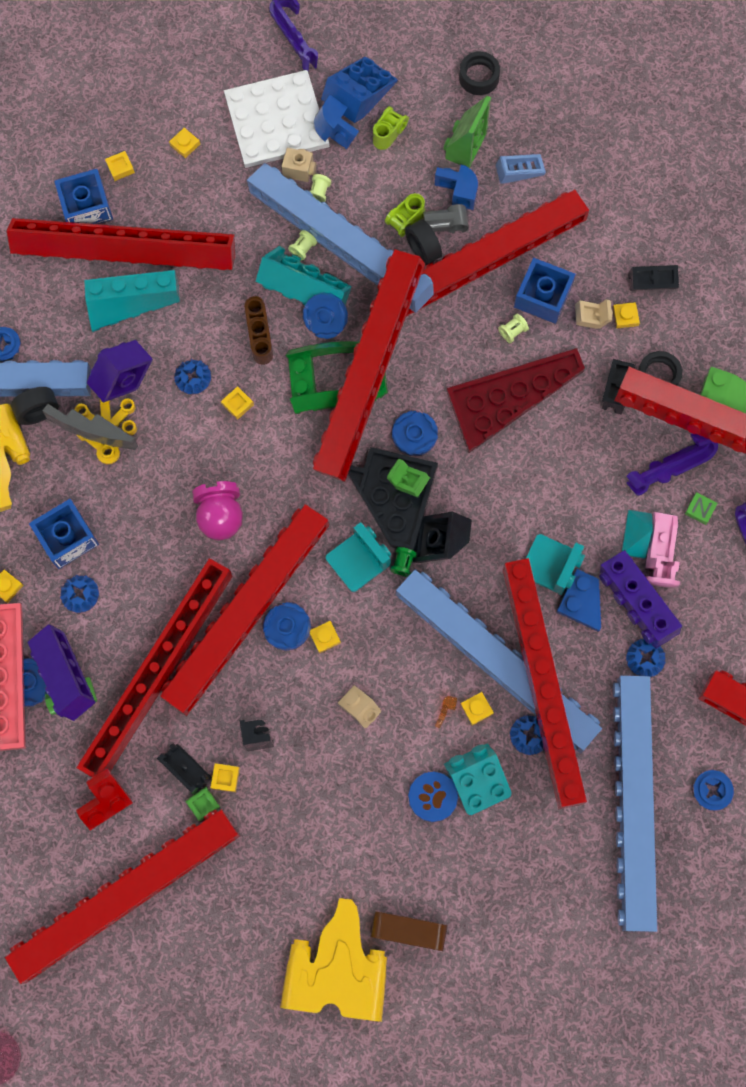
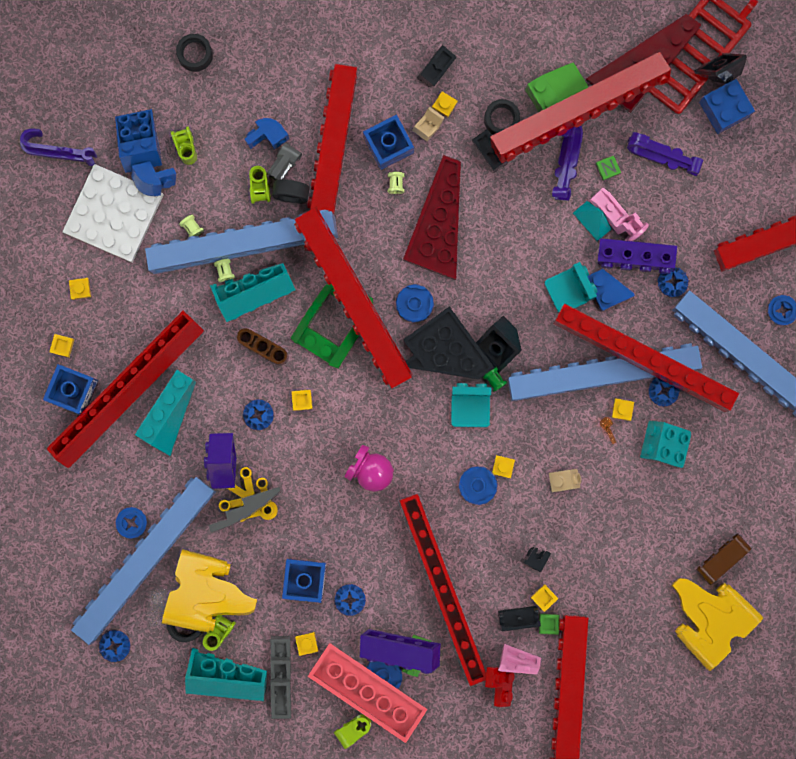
camera: 55 degrees left, 10 degrees up
(30, 403) = (198, 534): black tyre -> none
(140, 800) = (518, 661): none -> bright pink wing
(245, 610) = (447, 502): red brick -> none
(298, 164) = (162, 226): tan brick -> none
(325, 315) = (289, 296): blue tile -> none
(407, 478) = (447, 334): bright green bracket -> none
(433, 796) = (655, 480): blue tile -> none
(468, 134) = (236, 98): bright green slope -> none
(508, 174) = (280, 94): medium blue slope -> none

